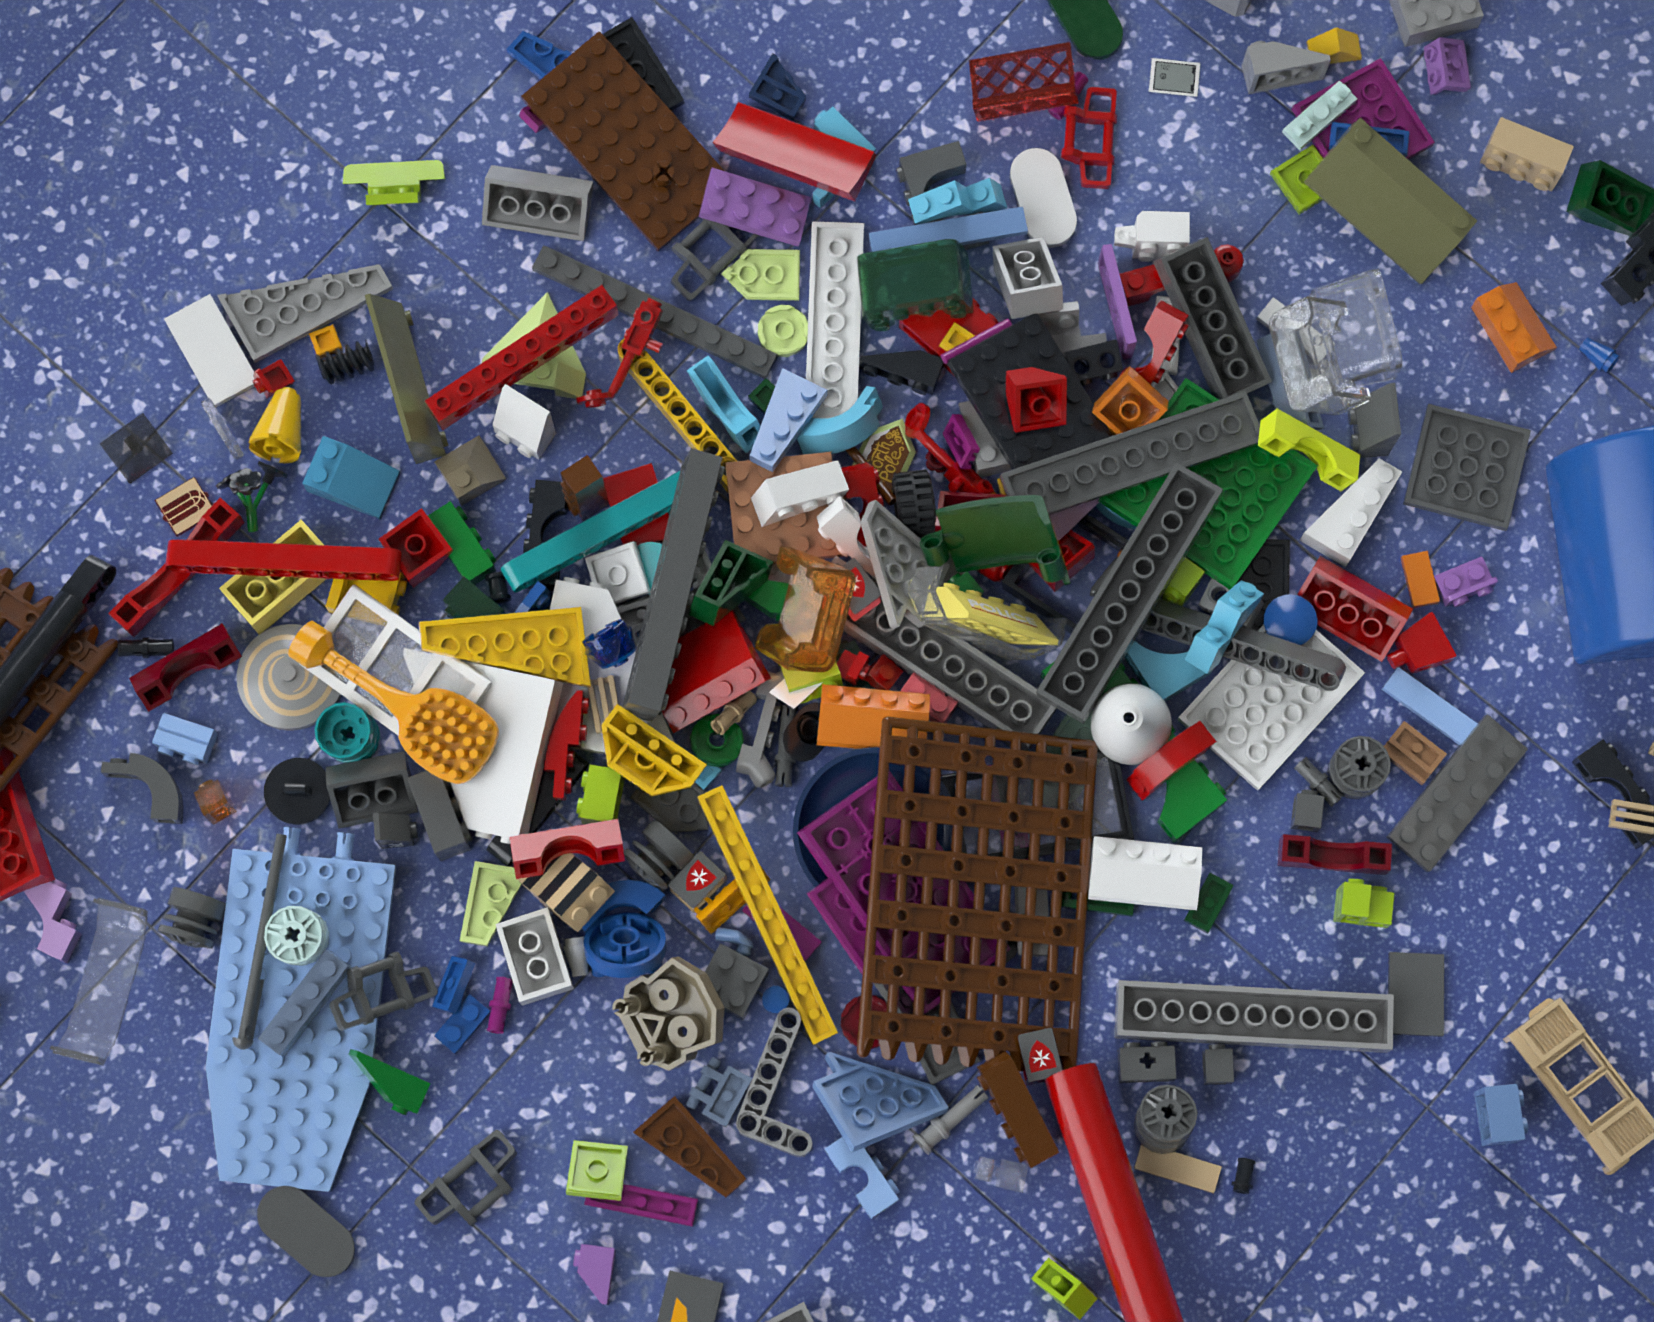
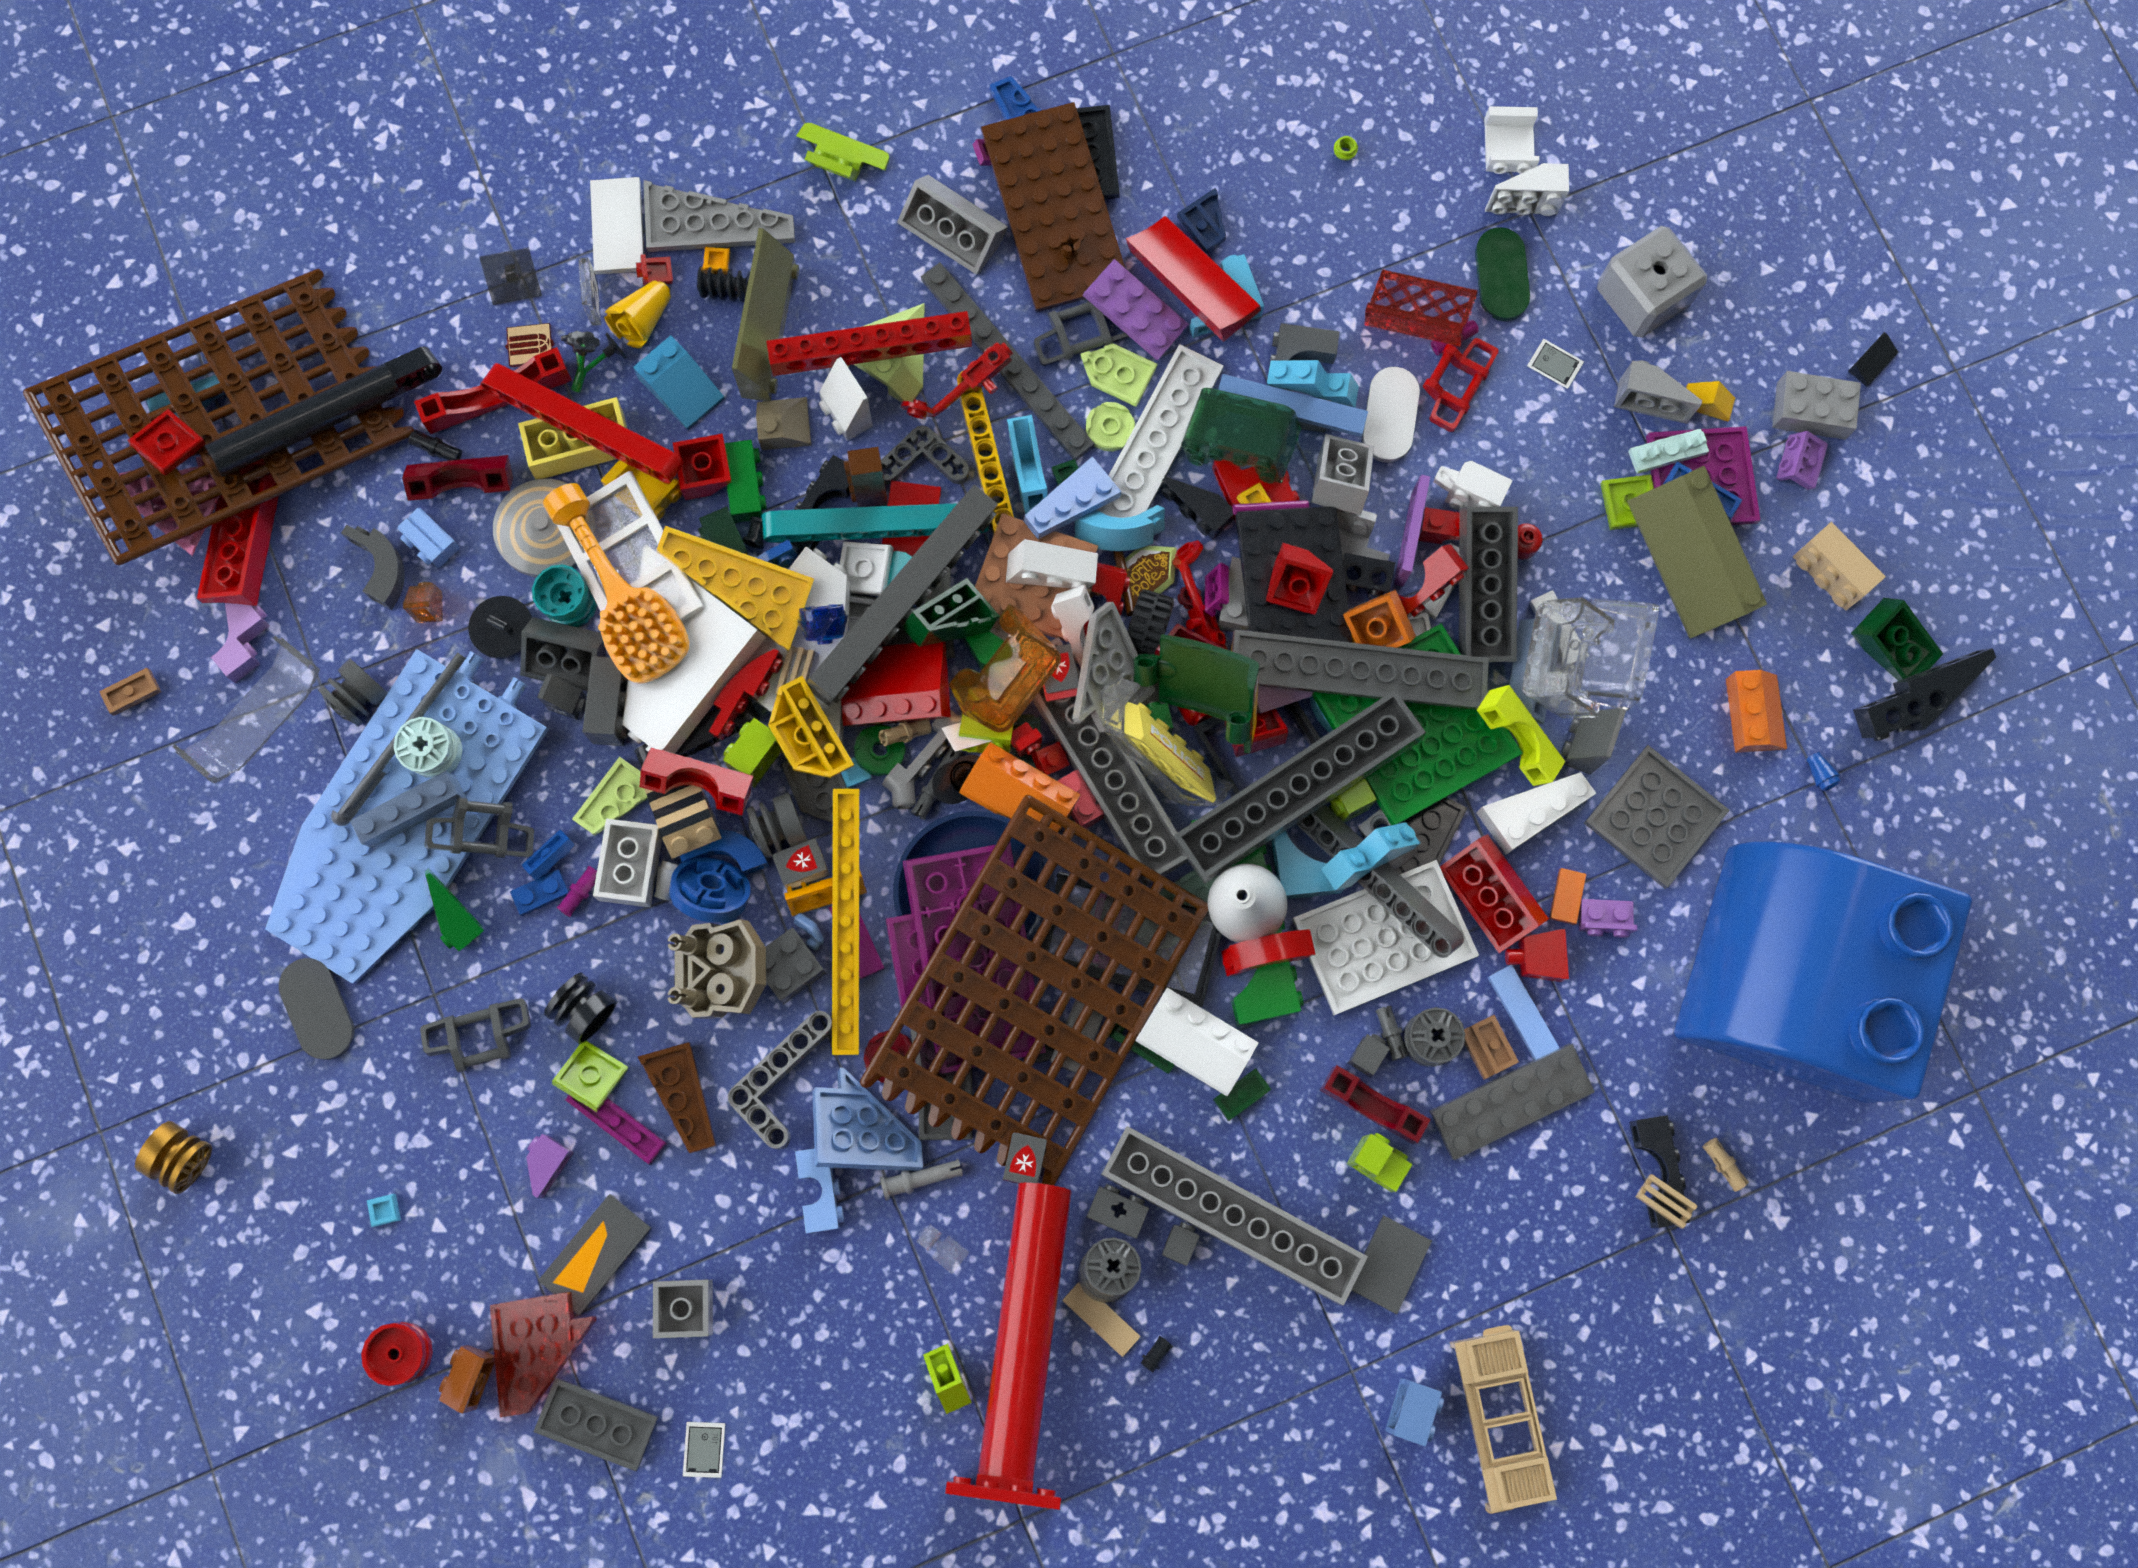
camera: 20 degrees right, 0 degrees up
(558, 1111) = (577, 1005): none -> black wheel
(620, 433) = (924, 449): none -> dark grey beam
(726, 1096) = (733, 1064): sand blue plate -> none
(775, 999) = (819, 999): blue tile -> none
(1017, 1109) = (981, 1198): reddish brown brick -> none
(1290, 619) = (1434, 877): blue dish -> none

